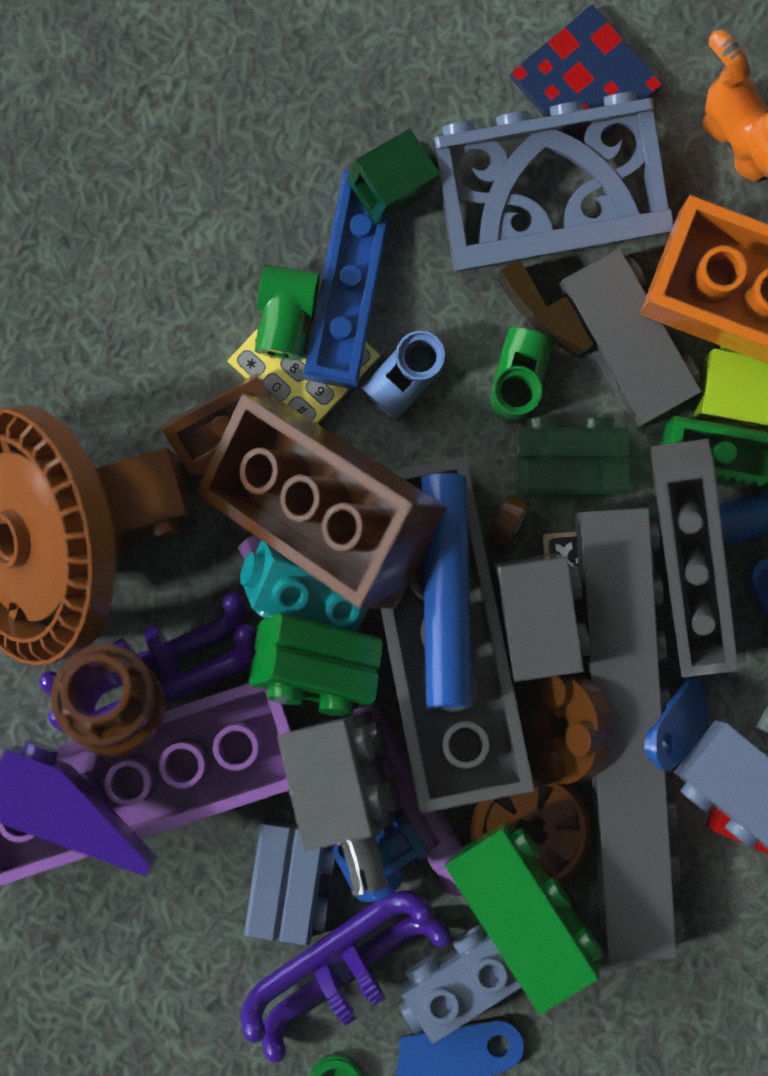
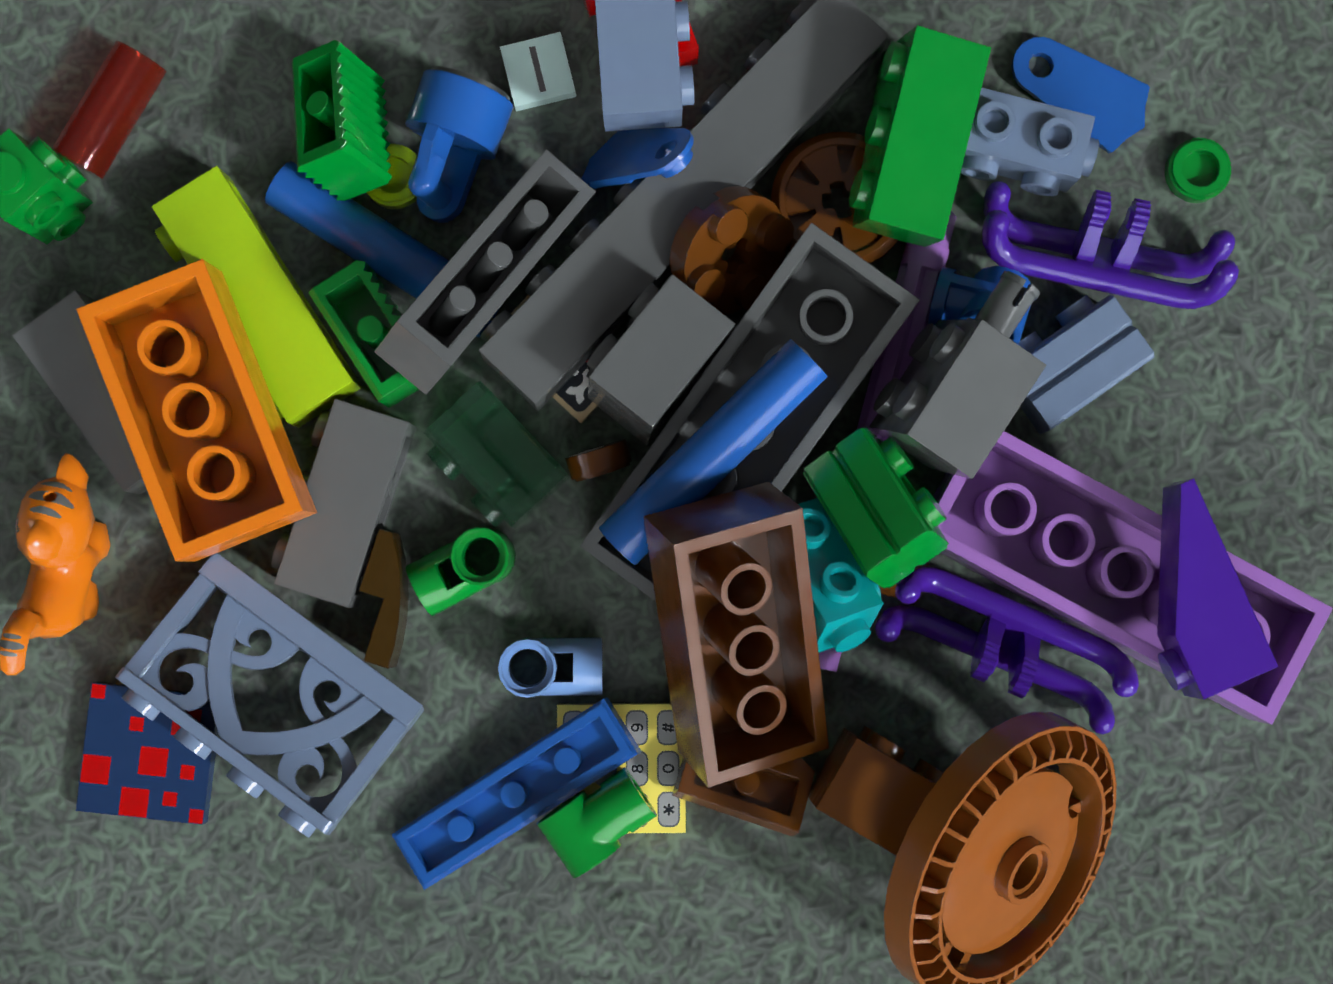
camera: 135 degrees left, 0 degrees up
(84, 681) = (1087, 687): reddish brown piece -> none
(394, 175) = (390, 839): dark green brick -> none

